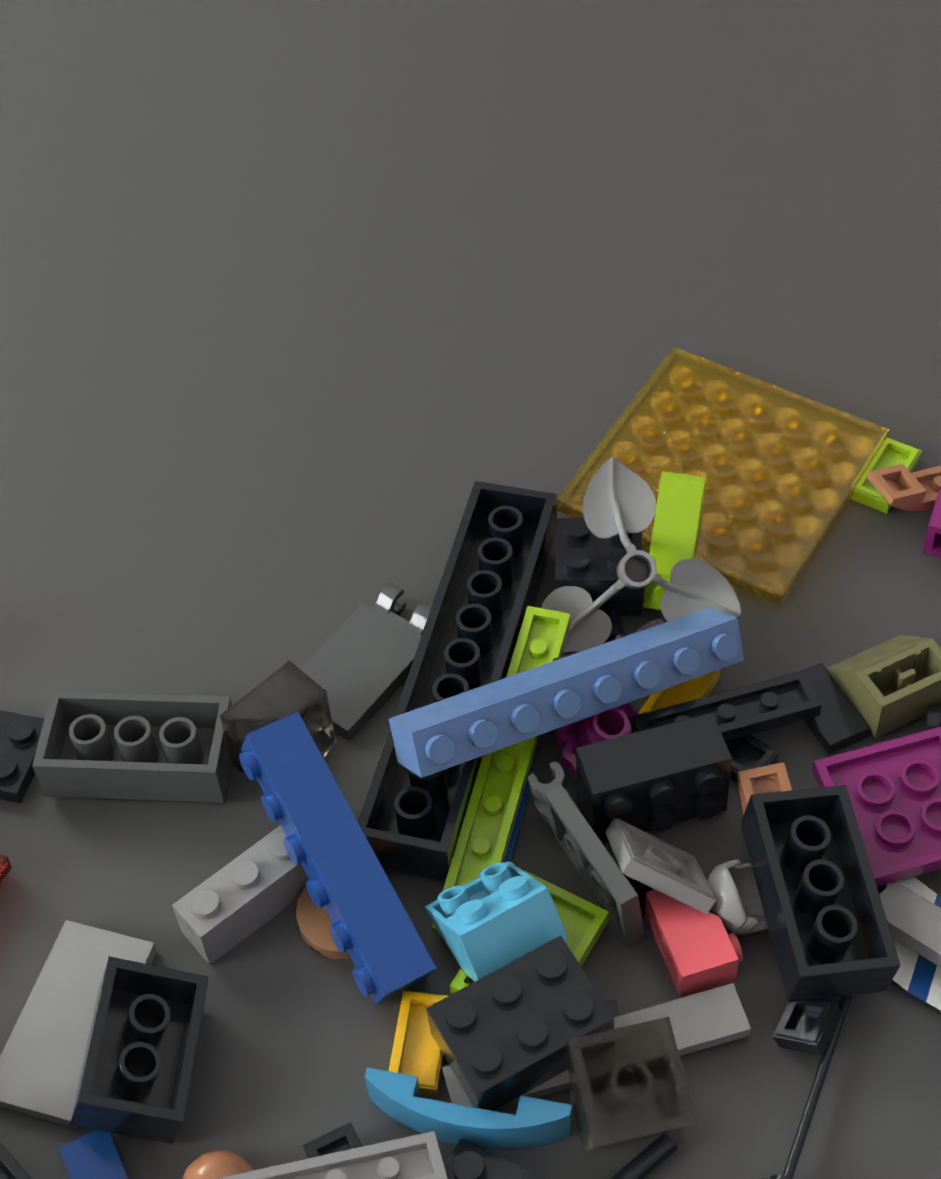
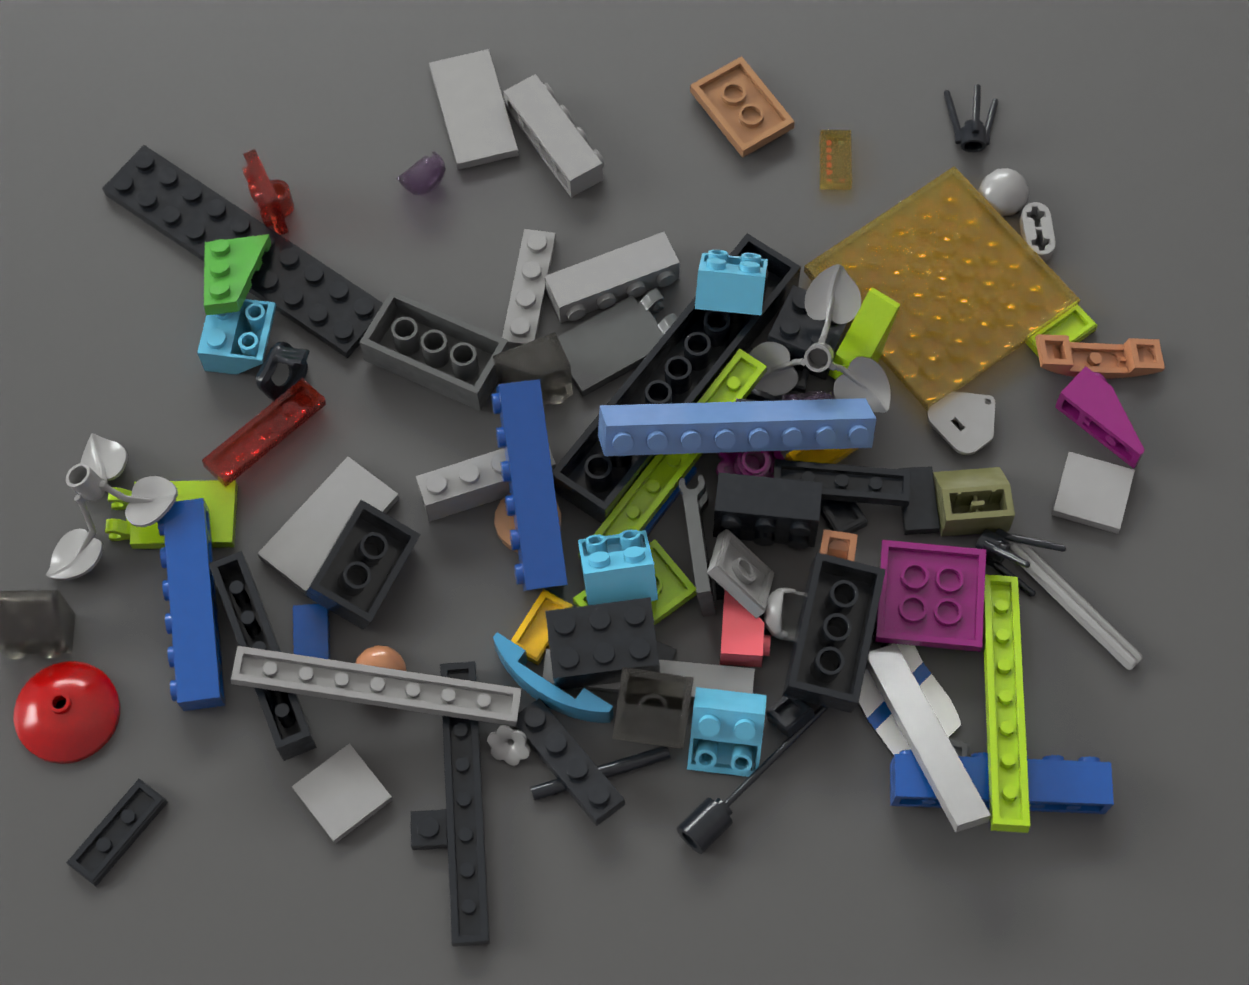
camera: 20 degrees right, 15 degrees up
(45, 558) = (424, 175): none -> clear purple hair
(79, 473) = (473, 109): none -> light grey tile
(190, 466) = (554, 135): none -> light grey brick
(227, 633) = (529, 287): none -> light grey plate
(327, 591) = (612, 277): none -> light grey brick
(401, 368) = (742, 106): none -> medium nougat plate
(486, 533) = (731, 282): none -> medium azure slope
(534, 388) = (835, 159): none -> clear yellow tile
(675, 310) = (973, 135): none -> black plant
(740, 1081) = (726, 732): none -> medium azure slope
(743, 352) = (1005, 191): none -> light grey hair
(806, 377) = (1043, 231): none -> light grey beam
(834, 591) = (973, 417): none -> light grey piece

